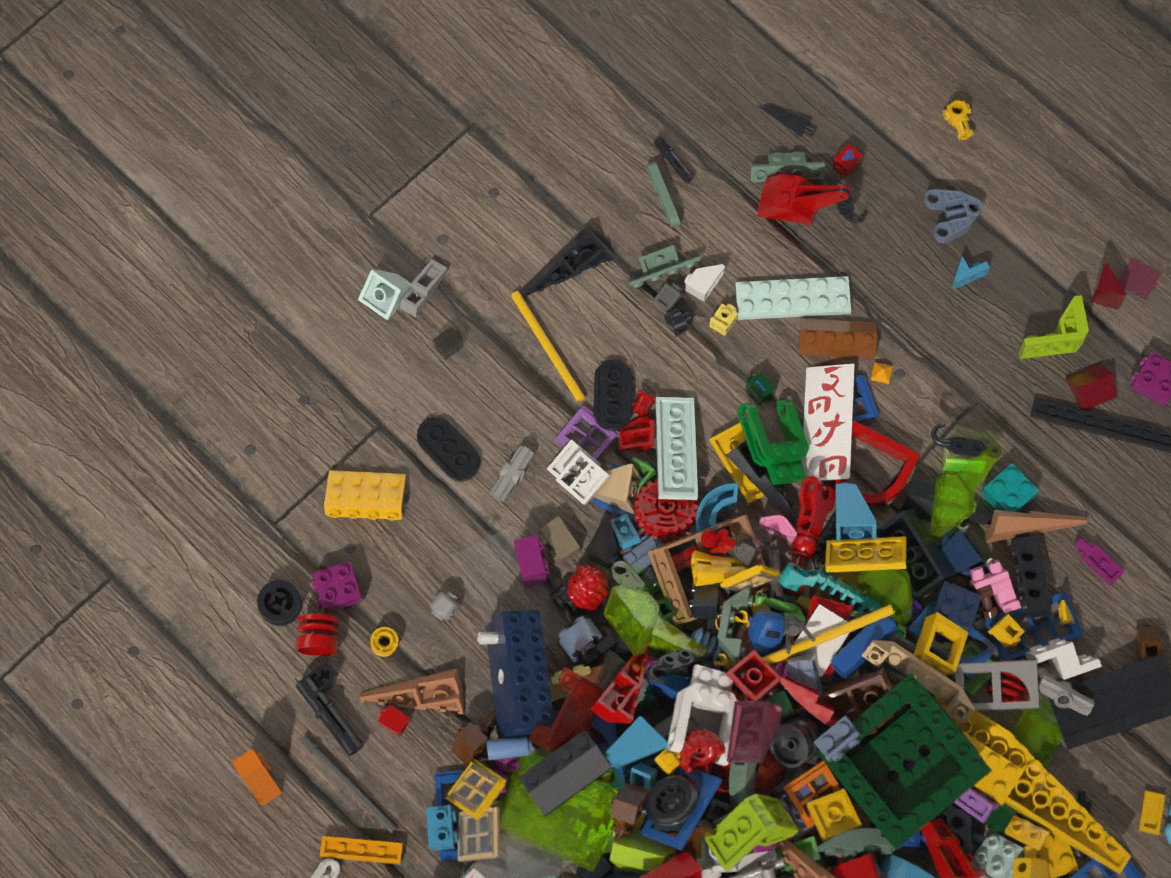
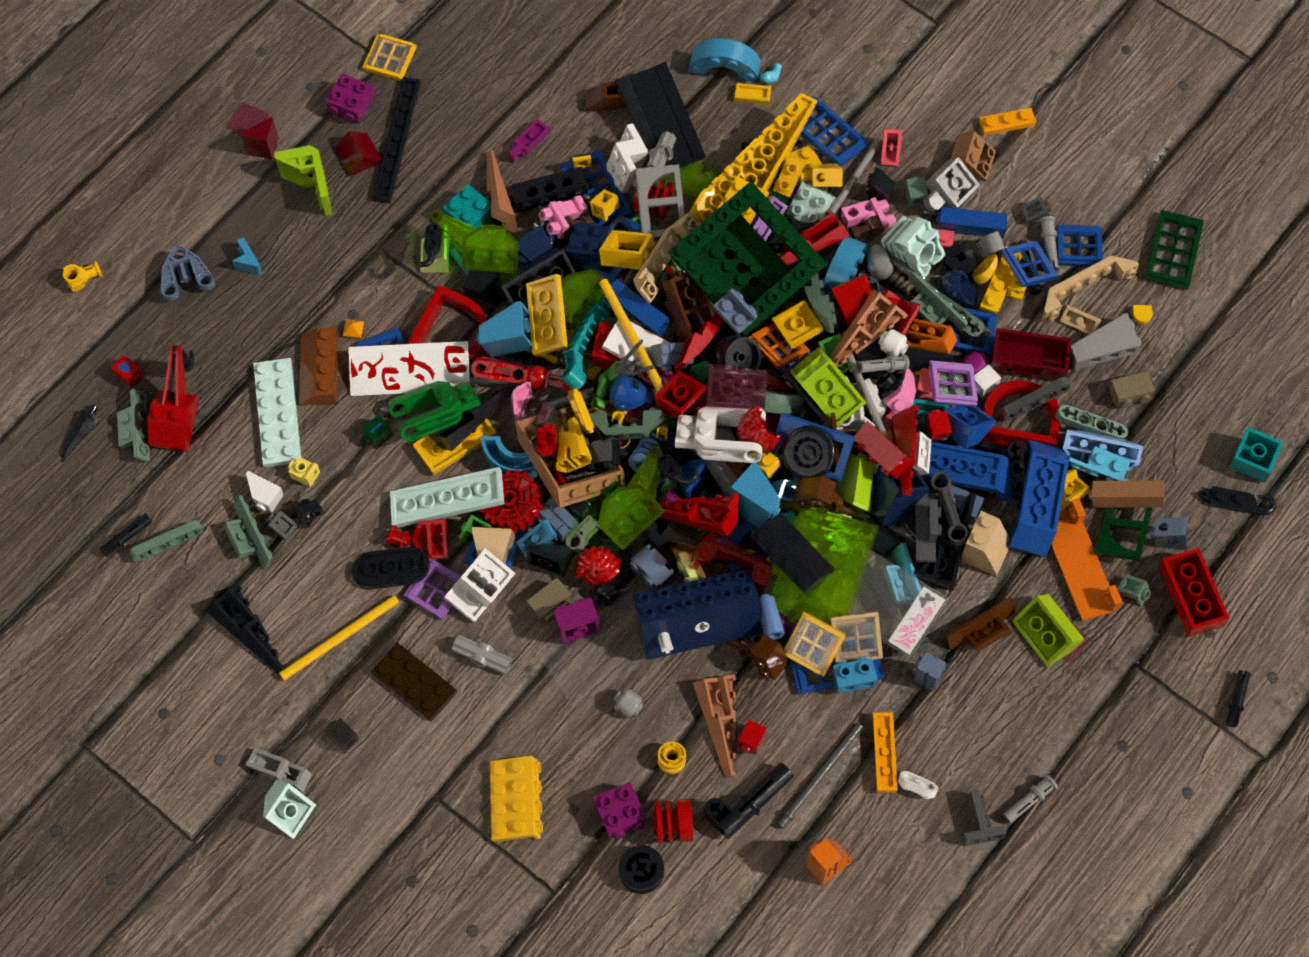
camera: 100 degrees left, 5 degrees down
(448, 449) = (458, 723): black tile -> none
(495, 411) = (414, 681): none -> dark brown plate

